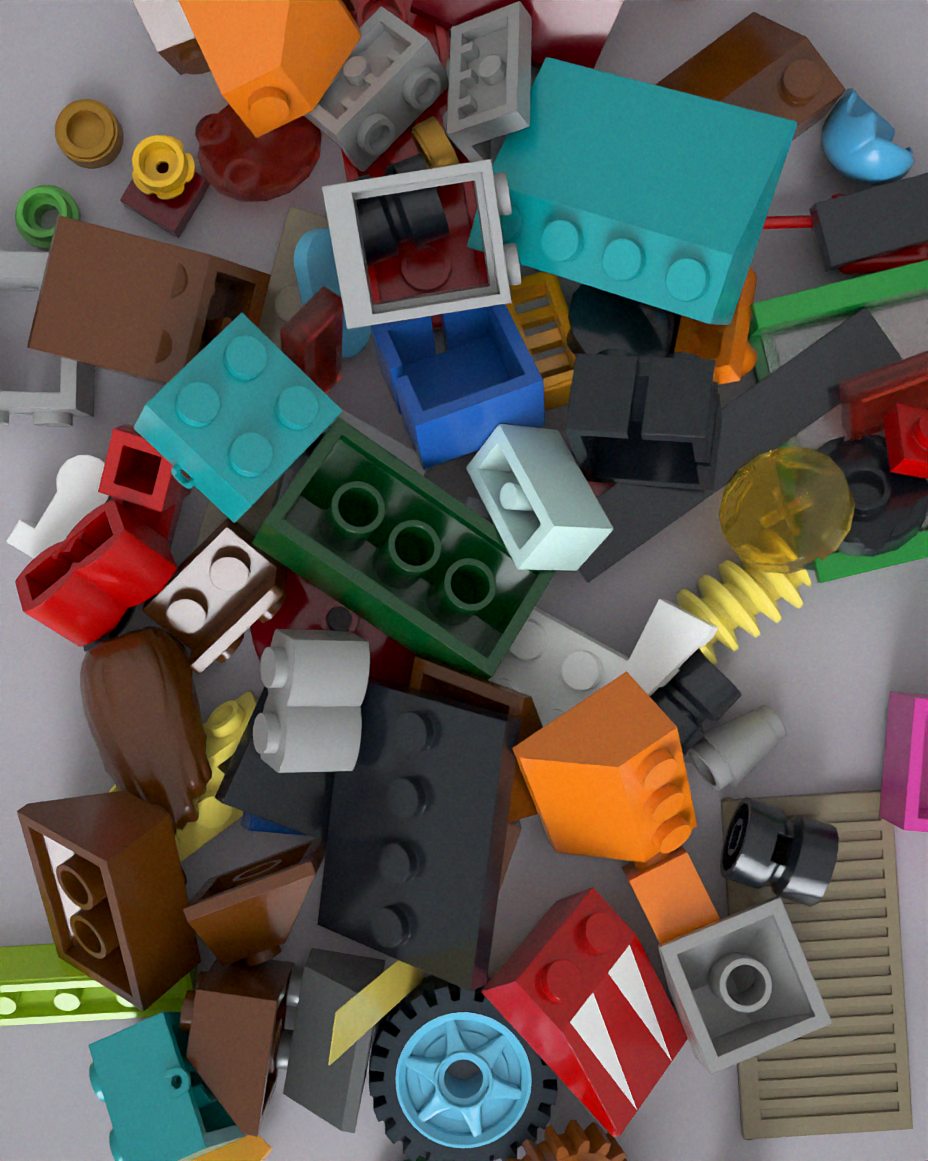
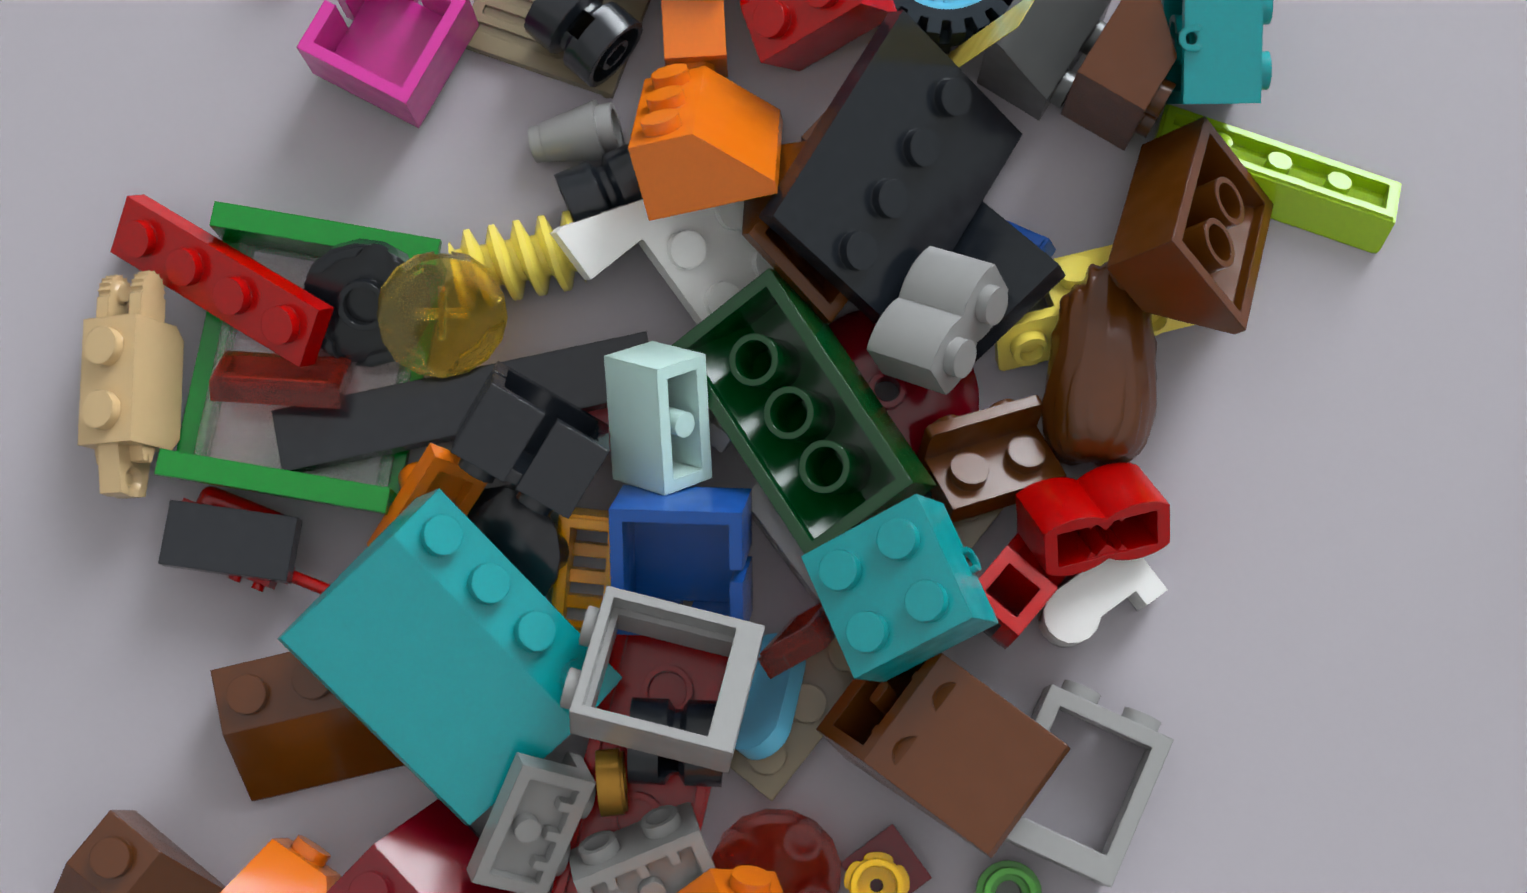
camera: 155 degrees left, 10 degrees down
(255, 905) = (1063, 174): reddish brown slope -> none
(861, 143) = (216, 624): dark azure hair -> none

